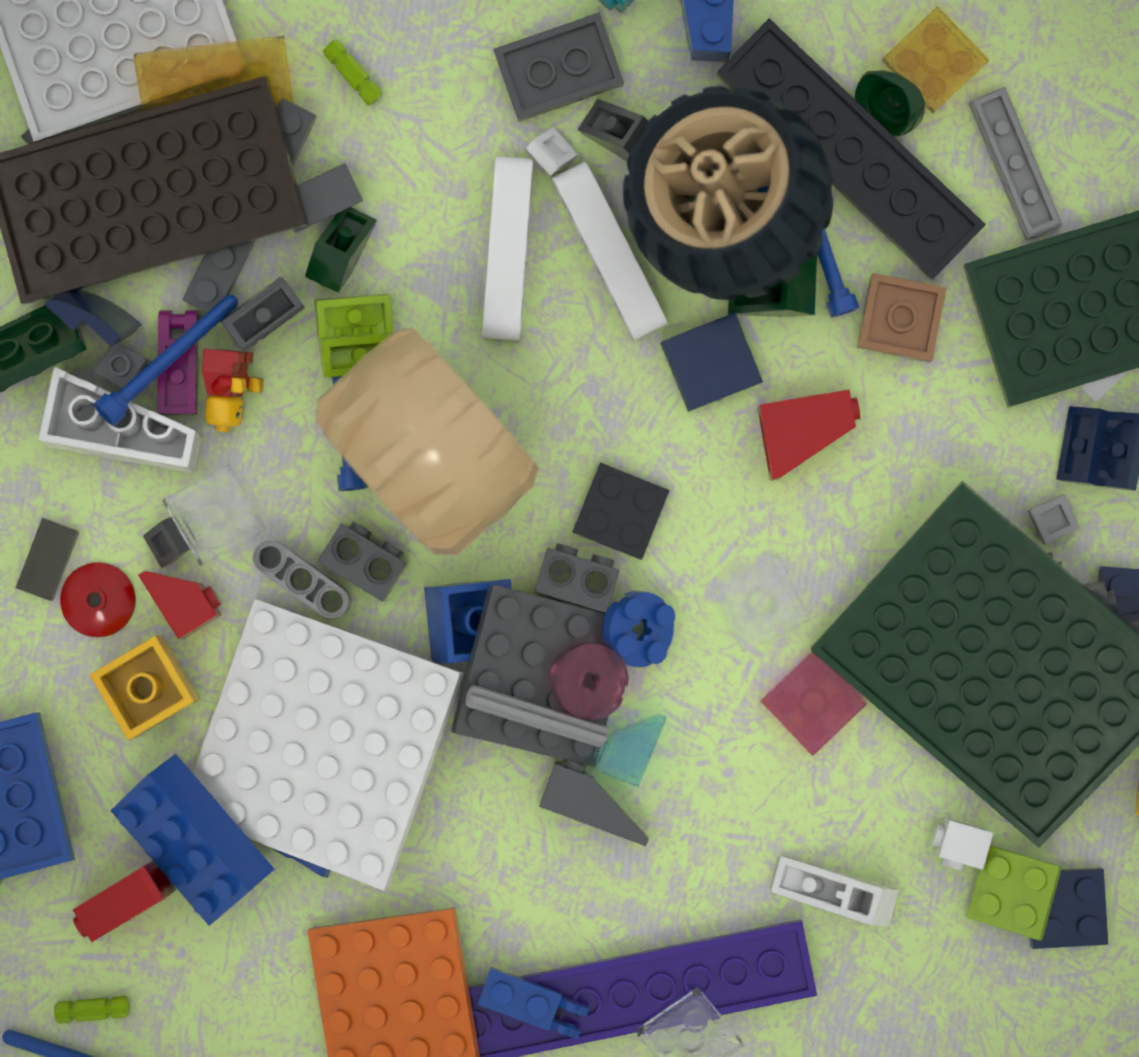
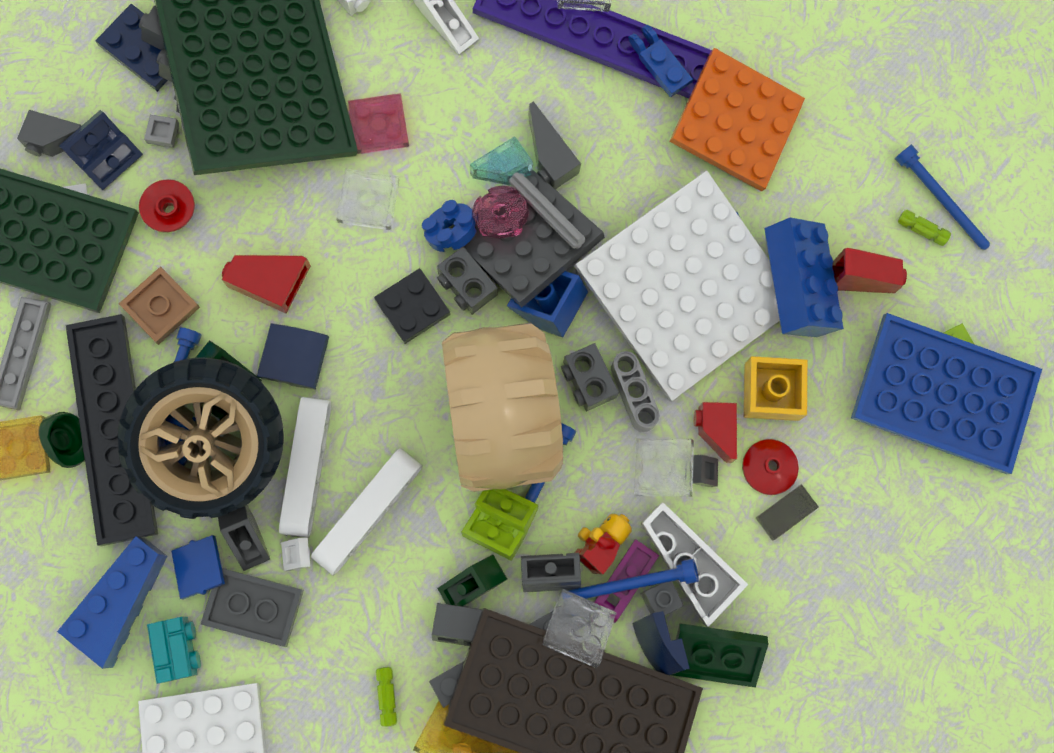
camera: 155 degrees left, 10 degrees down
(191, 273) = (579, 628): none -> clear plate
(646, 68) = (197, 567): none -> blue piece
(997, 430) = (158, 198): none -> red dish

